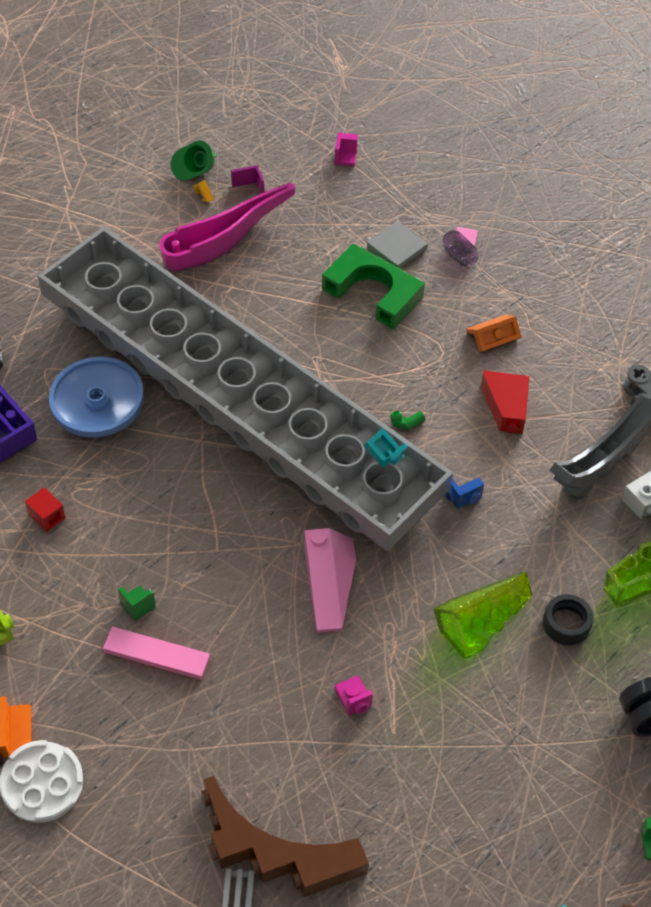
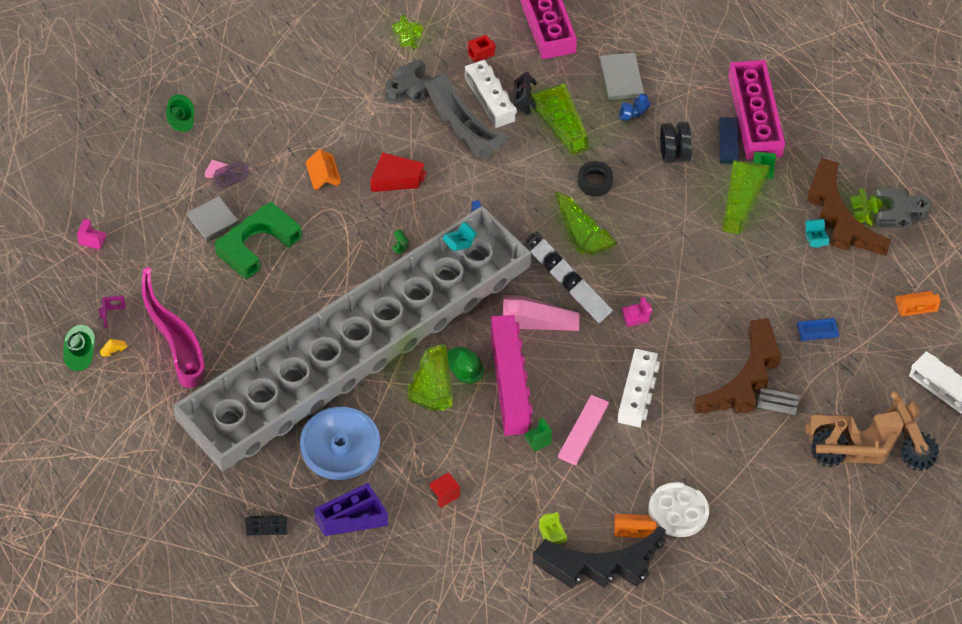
camera: 80 degrees left, 0 degrees up
(184, 470) = (432, 381): none -> clear neon green wedge
(216, 550) = (510, 375): none -> dark pink brick
(227, 707) = (637, 388): none -> white brick
(238, 511) = (465, 365): none -> green piece
(380, 580) = (567, 277): none -> arch
(527, 188) = (180, 113): none -> green piece
(593, 810) = (744, 188): none -> clear neon green wedge

